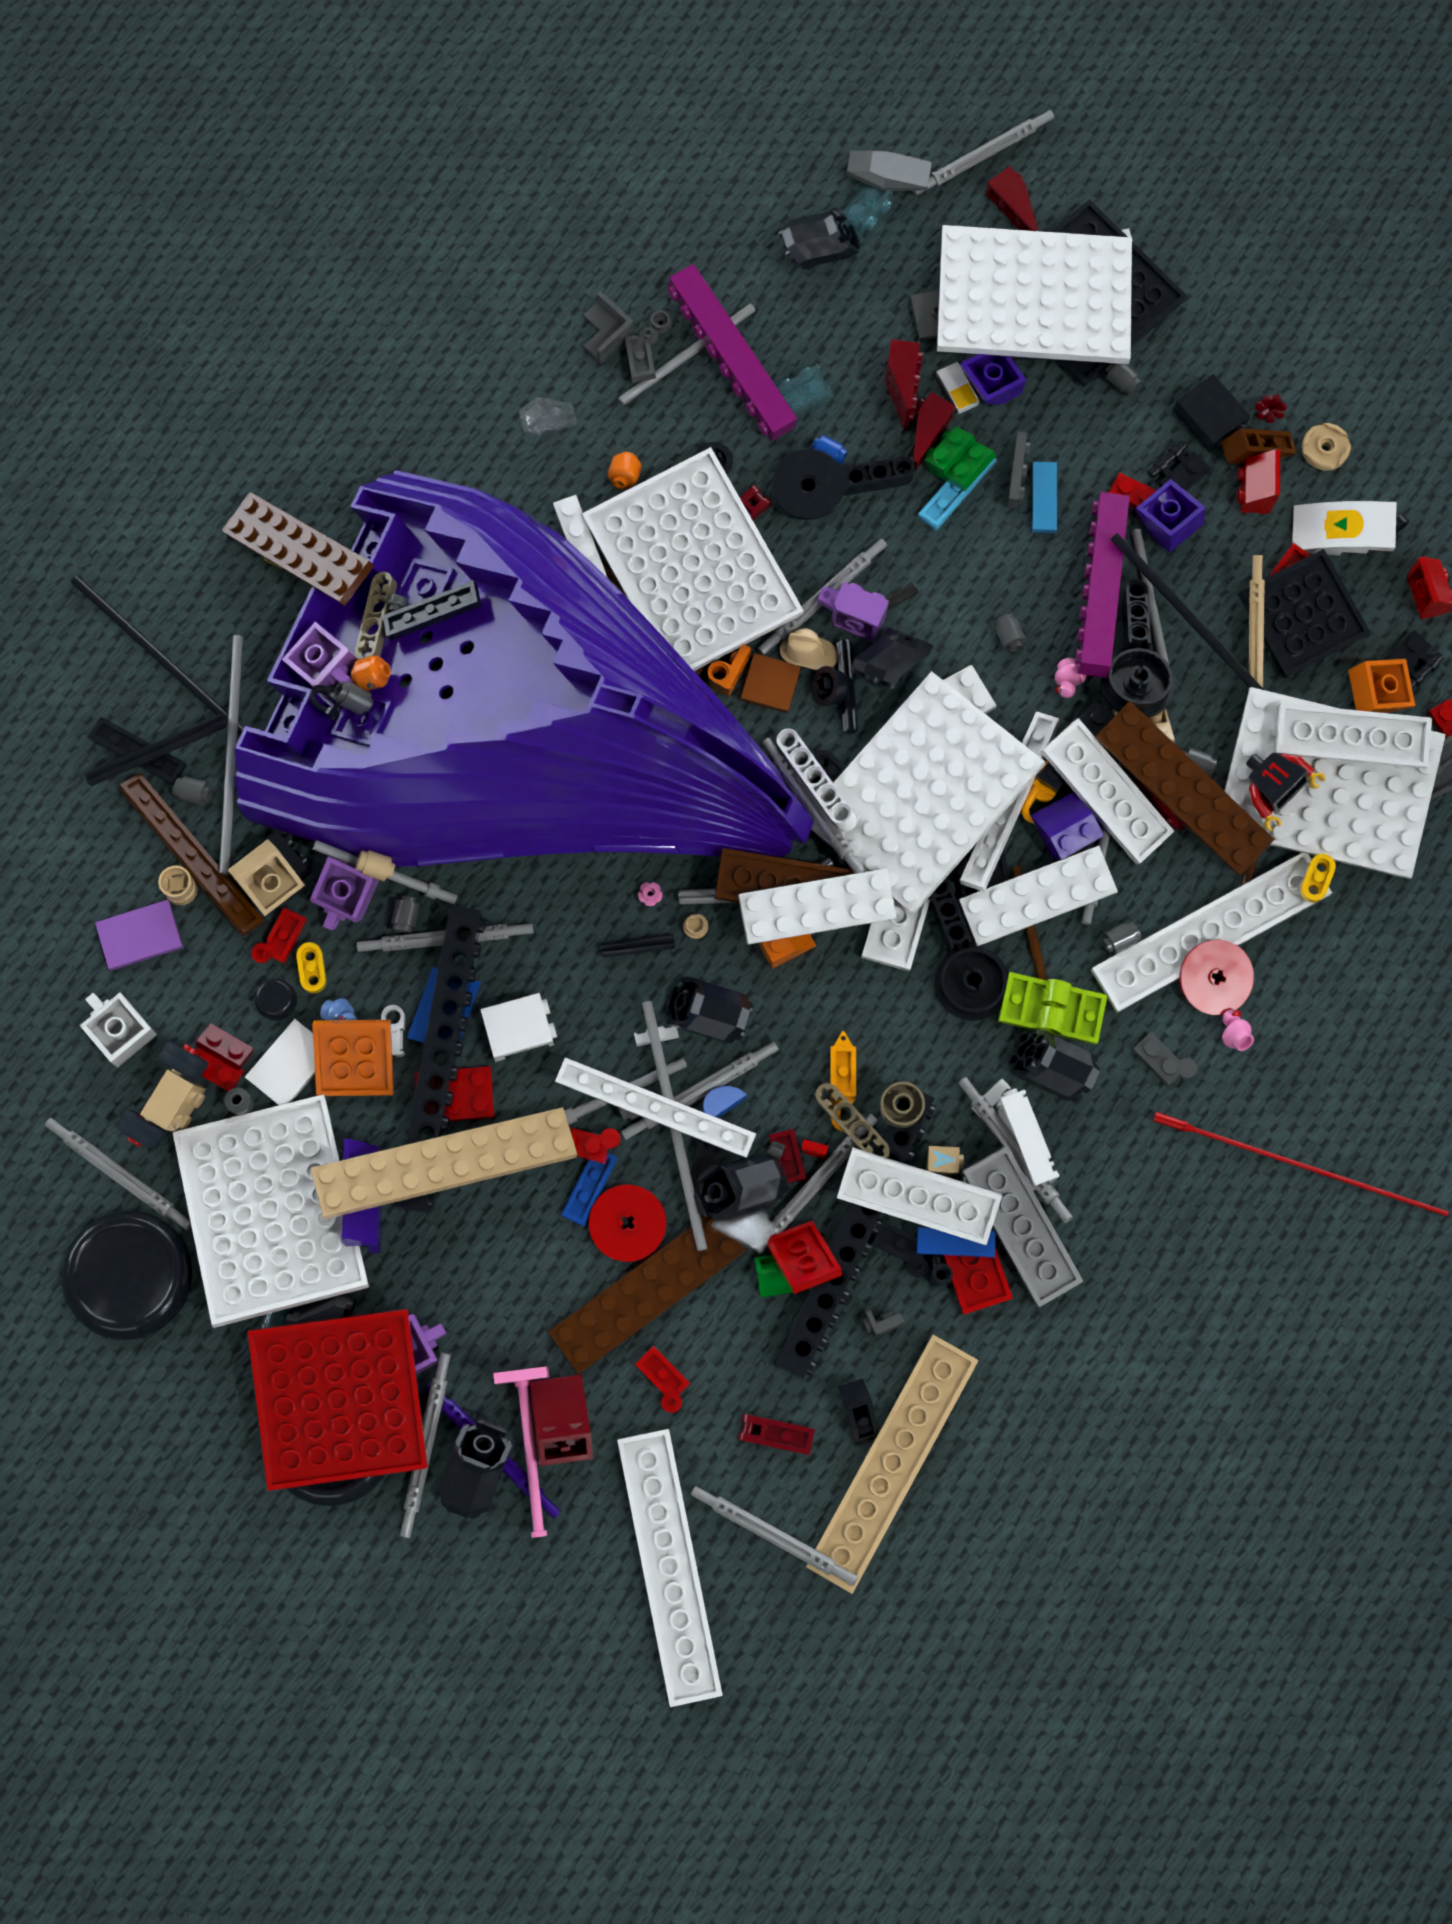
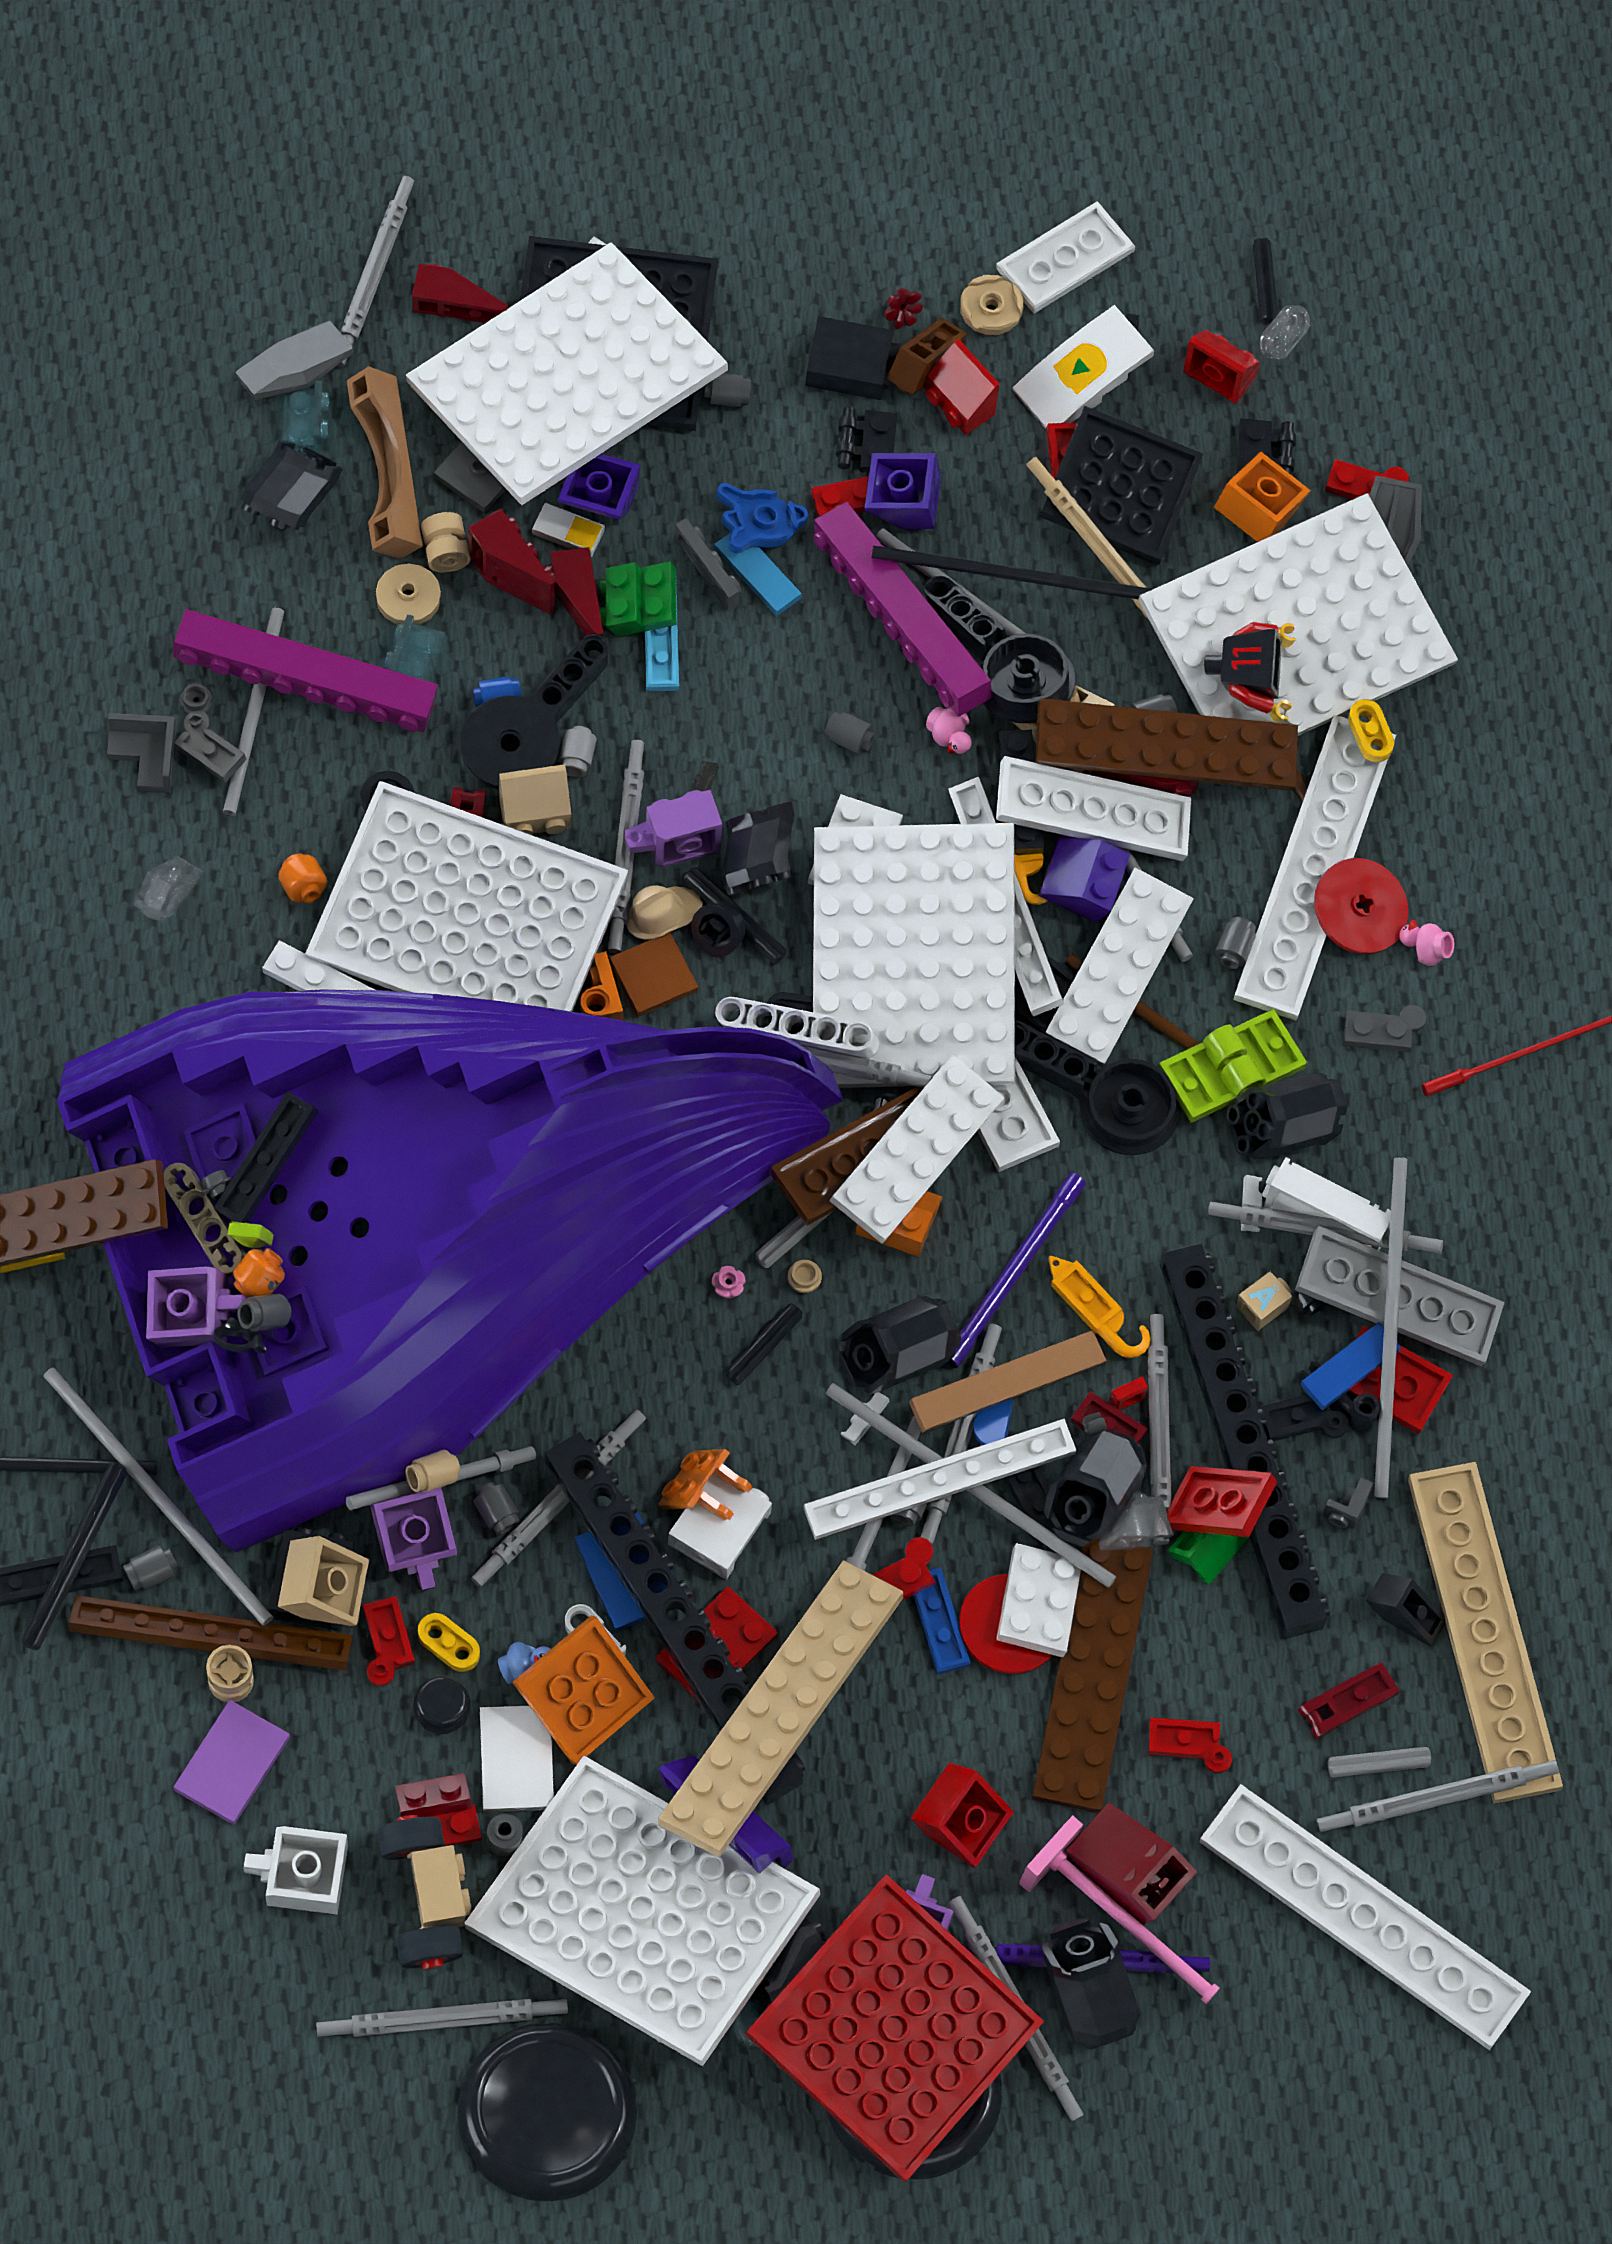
camera: 45 degrees left, 10 degrees down
(386, 647) = (250, 1234): none -> lime tile
(498, 1308) = (962, 1813): none -> red slope
(532, 985) = (696, 1470): none -> orange plate
(652, 1224) = (1039, 1600): none -> white plate
(749, 1082) = (1007, 1381): none -> medium nougat tile
(762, 1485) = (1379, 1762): none -> light grey axle
(790, 529) = (535, 800): none -> tan slope
(837, 365) = (420, 604): none -> tan plate
(843, 519) = (577, 751): none -> light grey brick
(855, 1121) = (1147, 1327): dark tan beam -> none
(877, 340) = (445, 543): none -> tan wheel
(882, 1004) = (1061, 1202): none -> dark purple piece
(905, 1091) = (1185, 1254): dark tan piece -> none
(911, 231) = (377, 406): none -> medium nougat arch
(919, 1196) = (1278, 1345): white plate -> none
(997, 1240) = (1390, 1328): none -> light grey piece
(1072, 466) = (758, 518): none -> blue tile
(1353, 735) = (1283, 562): white plate -> none
(1398, 452) = (1066, 257): none -> white tile

